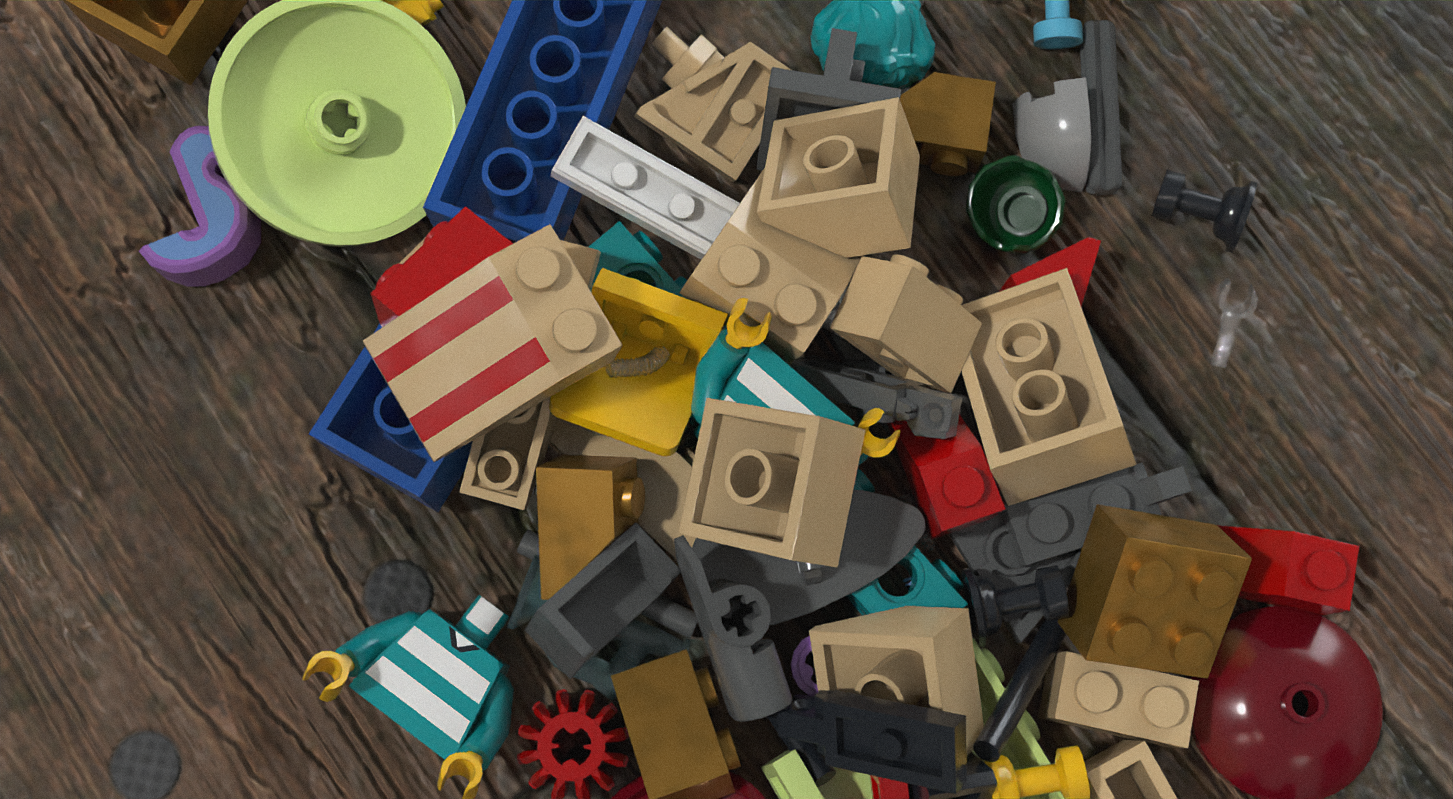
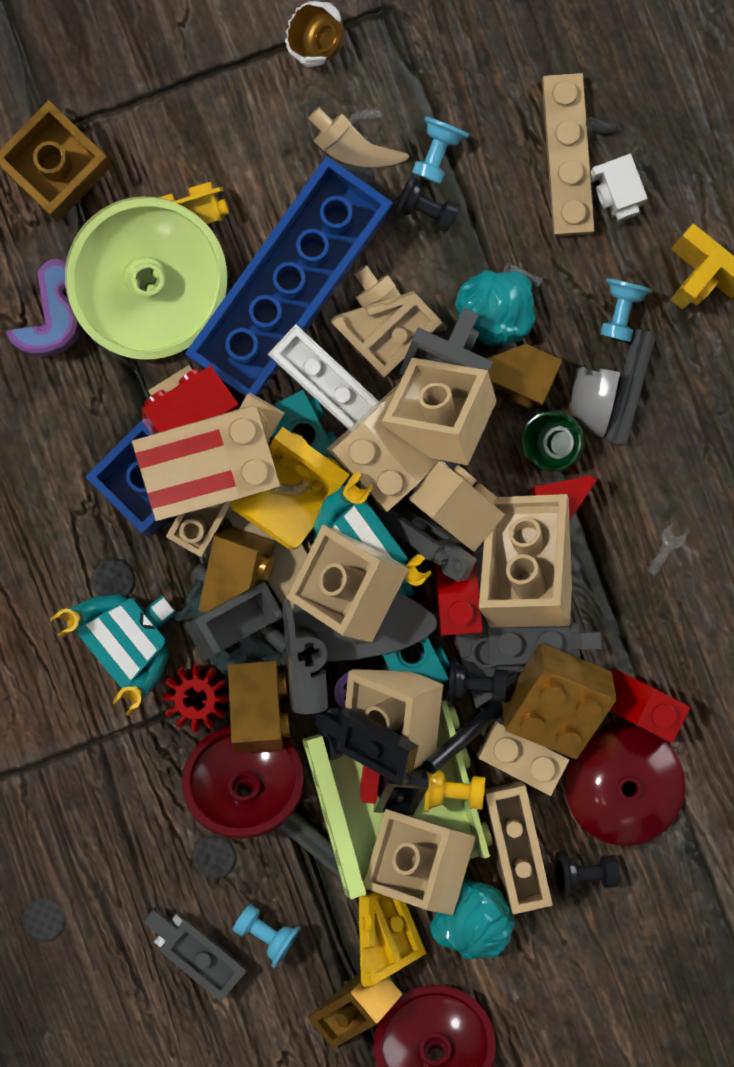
camera: 15 degrees right, 10 degrees up
(1226, 212) = (685, 479): black piece -> none

